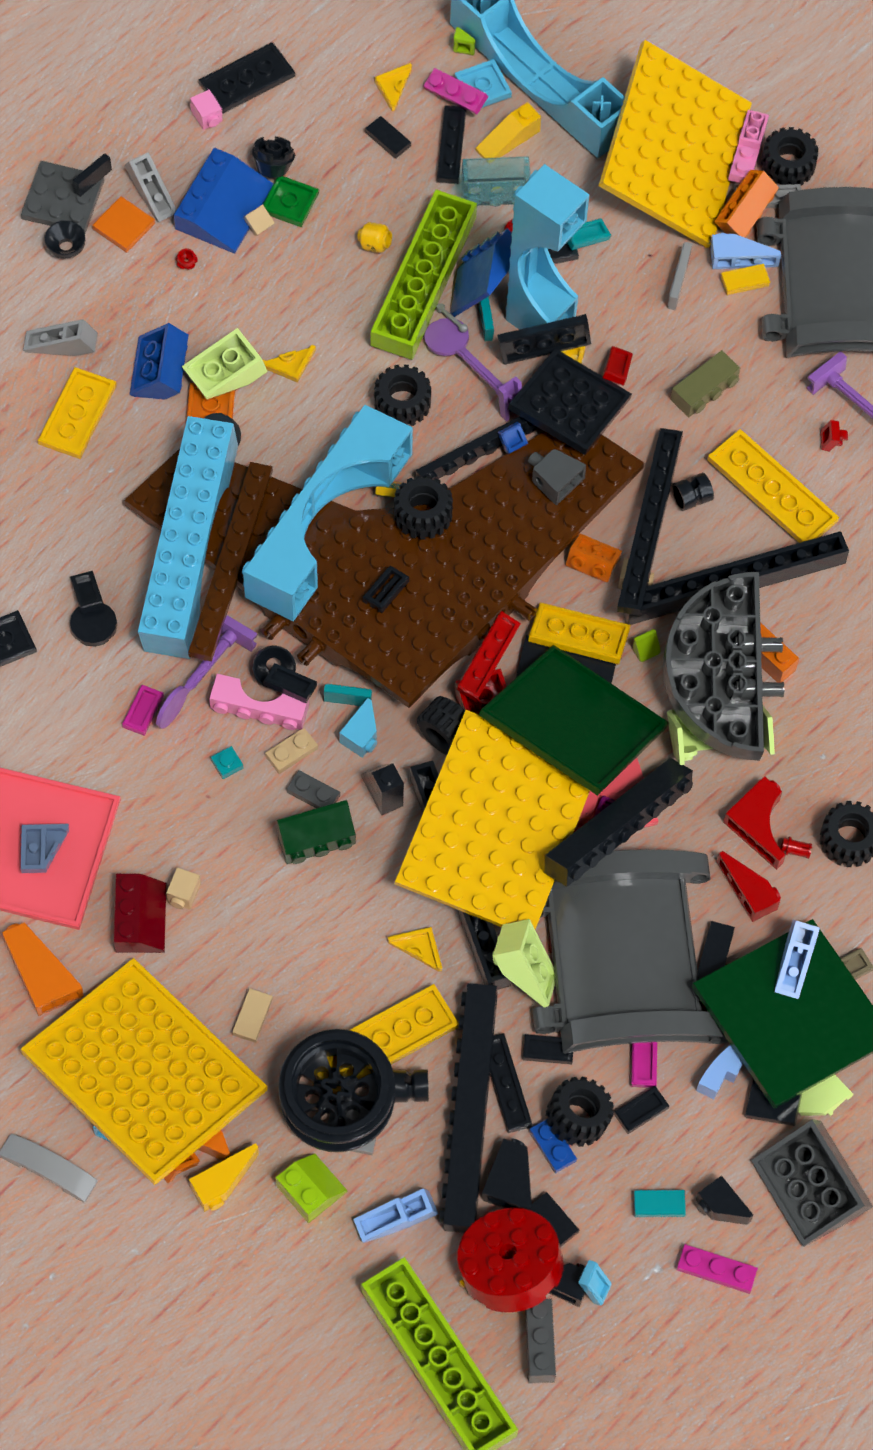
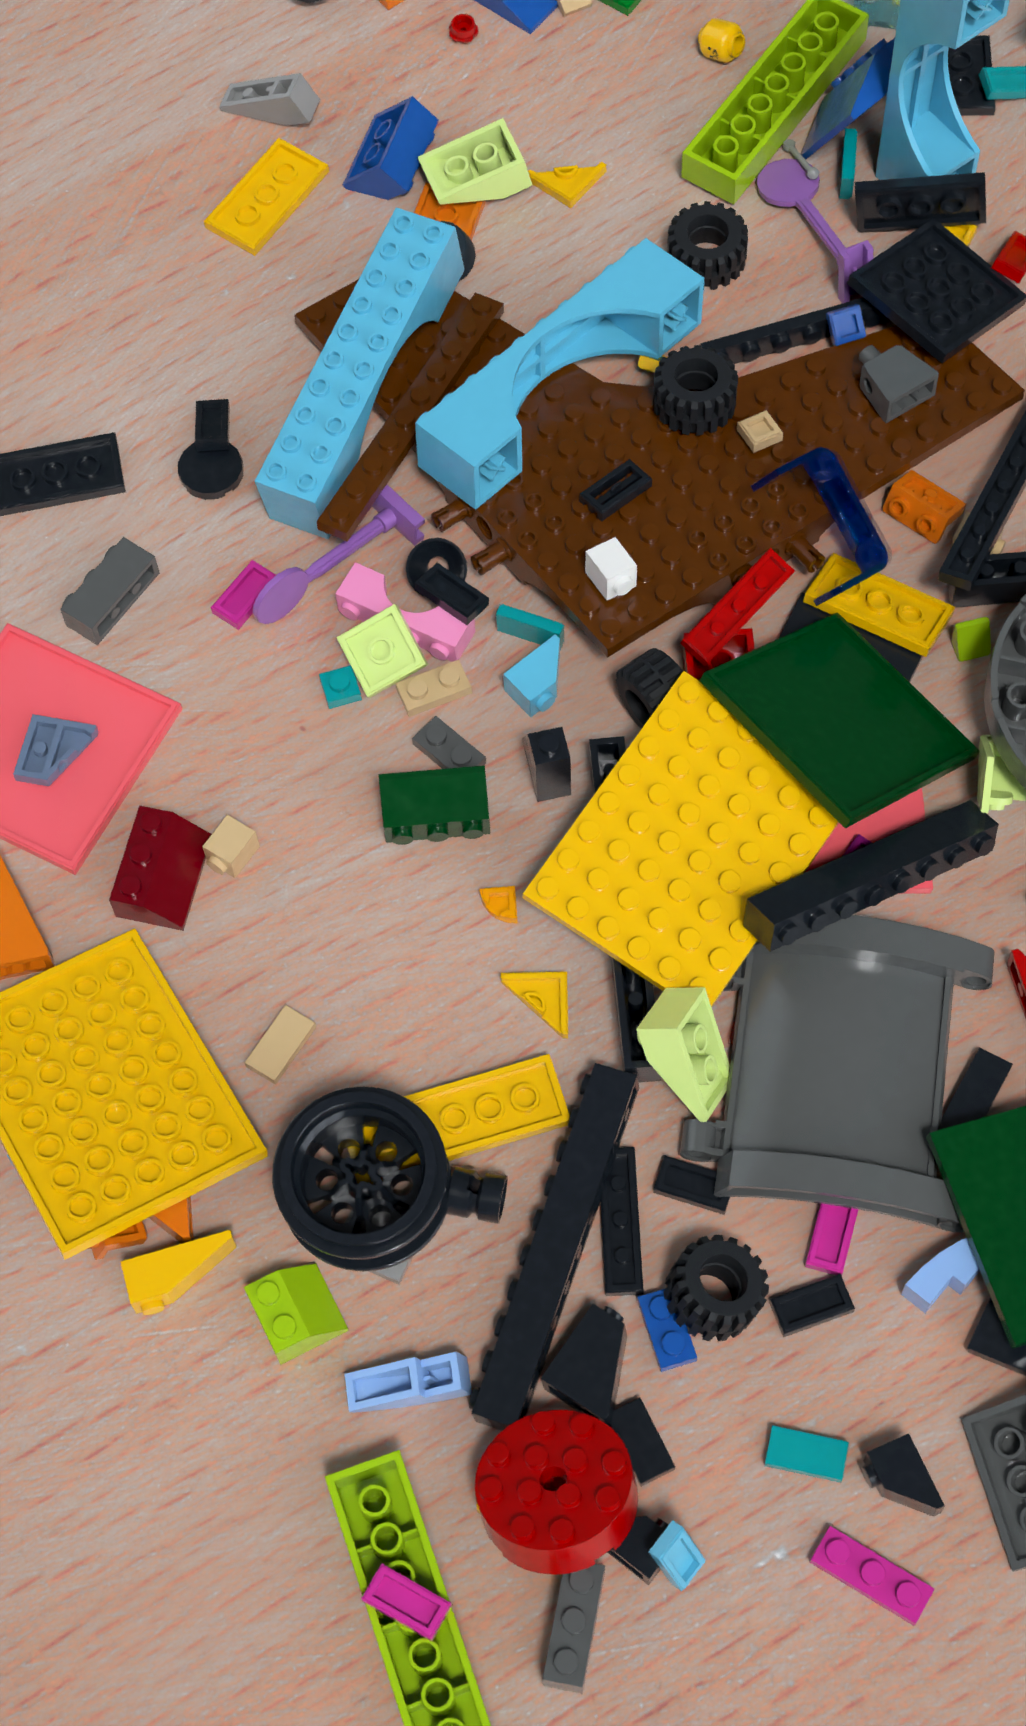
camera: 20 degrees right, 0 degrees up
(48, 726) = (109, 590): none -> dark grey brick
(251, 732) = (382, 650): none -> yellowish green tile
(375, 889) = (500, 903): none -> light orange tile
(398, 647) = (611, 569): none -> white brick
(434, 1348) = (406, 1602): none -> dark pink tile
(473, 527) = (760, 431): none -> tan tile
(547, 575) = (847, 509): none -> clear blue windscreen

